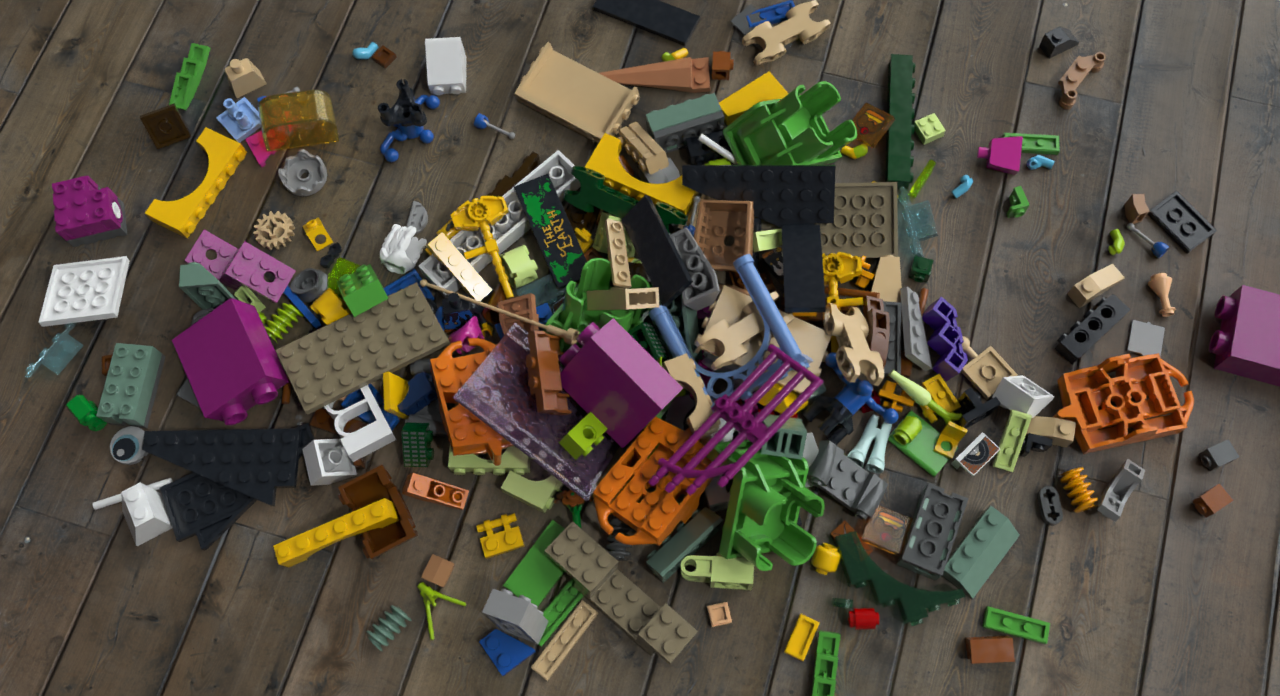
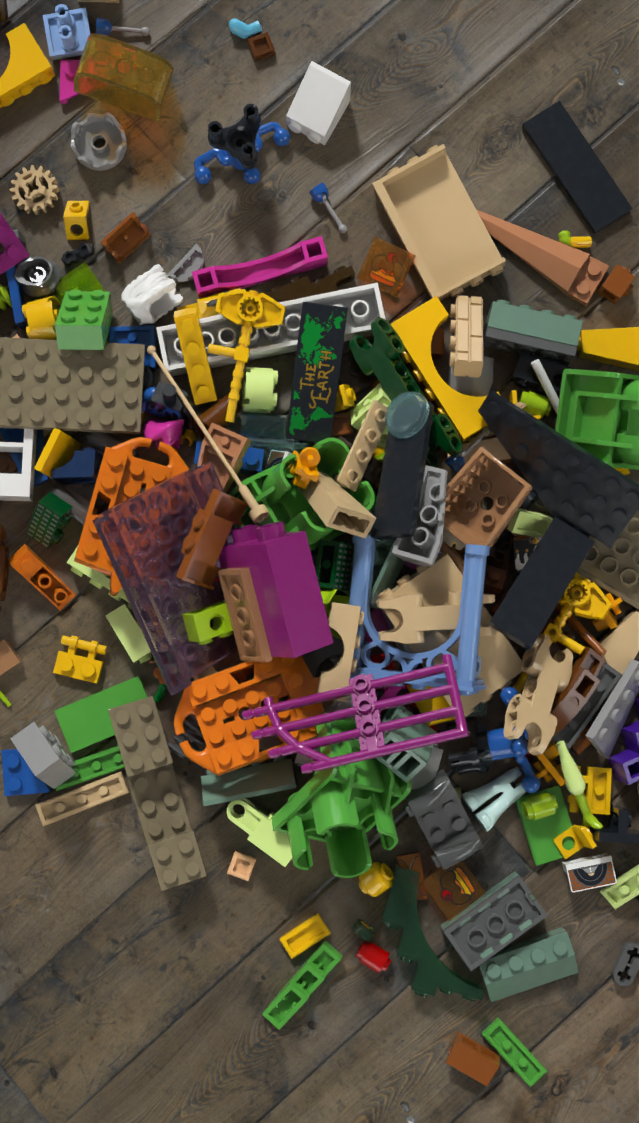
camera: 30 degrees right, 15 degrees up
(359, 225) = (125, 238): none -> dark orange hinge
(494, 167) = (291, 261): none -> dark pink arch
(557, 136) = (386, 266): none -> clear orange tile
(585, 289) = (305, 467): none -> light orange hips
(605, 411) = (245, 614): none -> medium nougat tile
(634, 213) = (407, 414): none -> clear light blue piece

